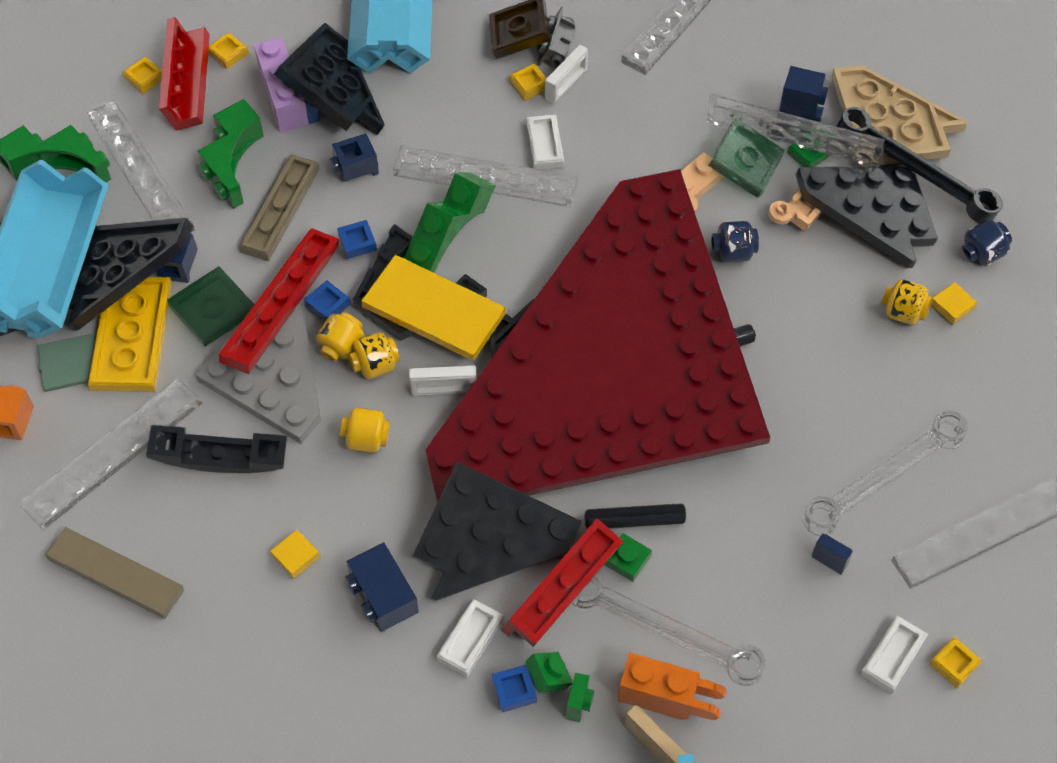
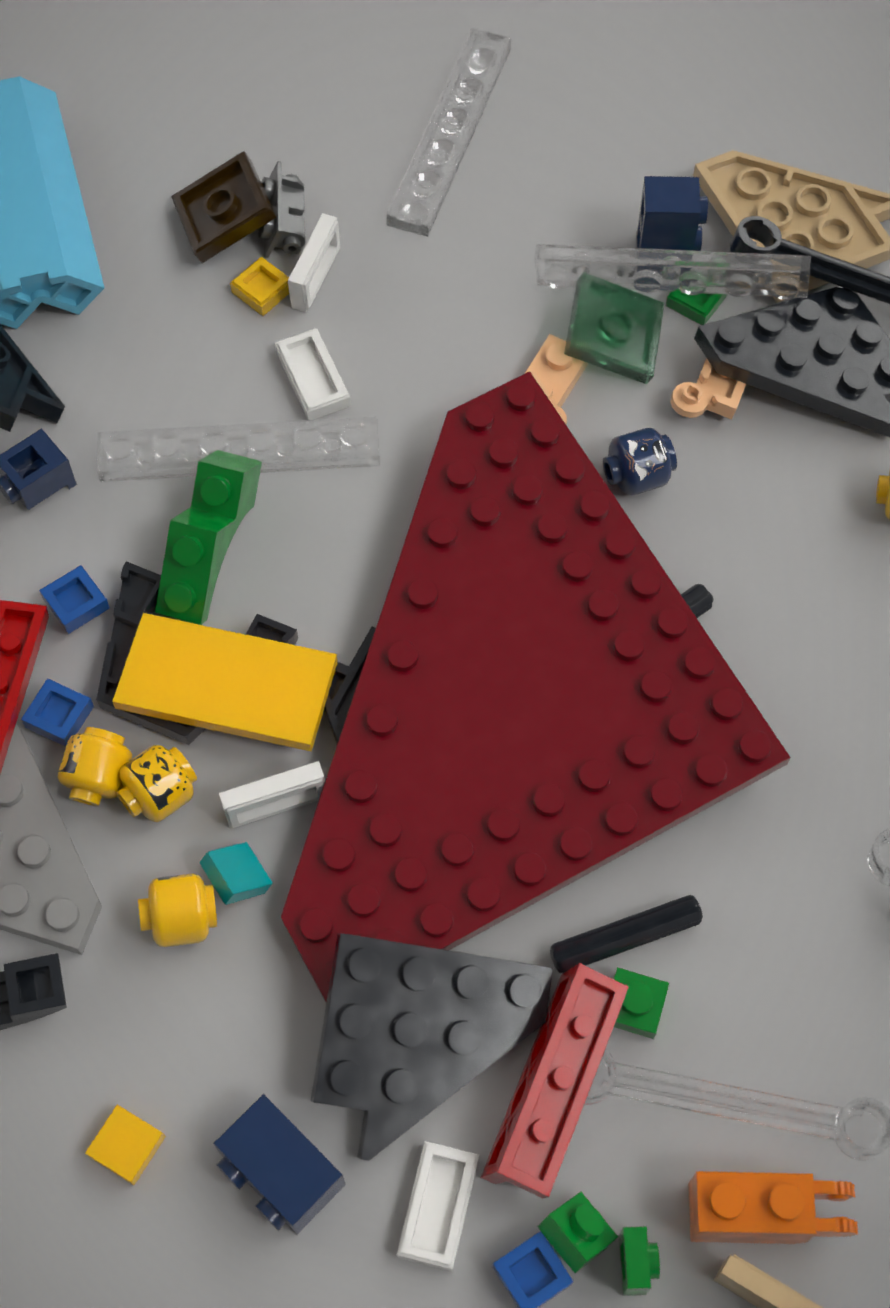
camera: 15 degrees left, 5 degrees up
(406, 419) = (235, 873): none -> teal tile

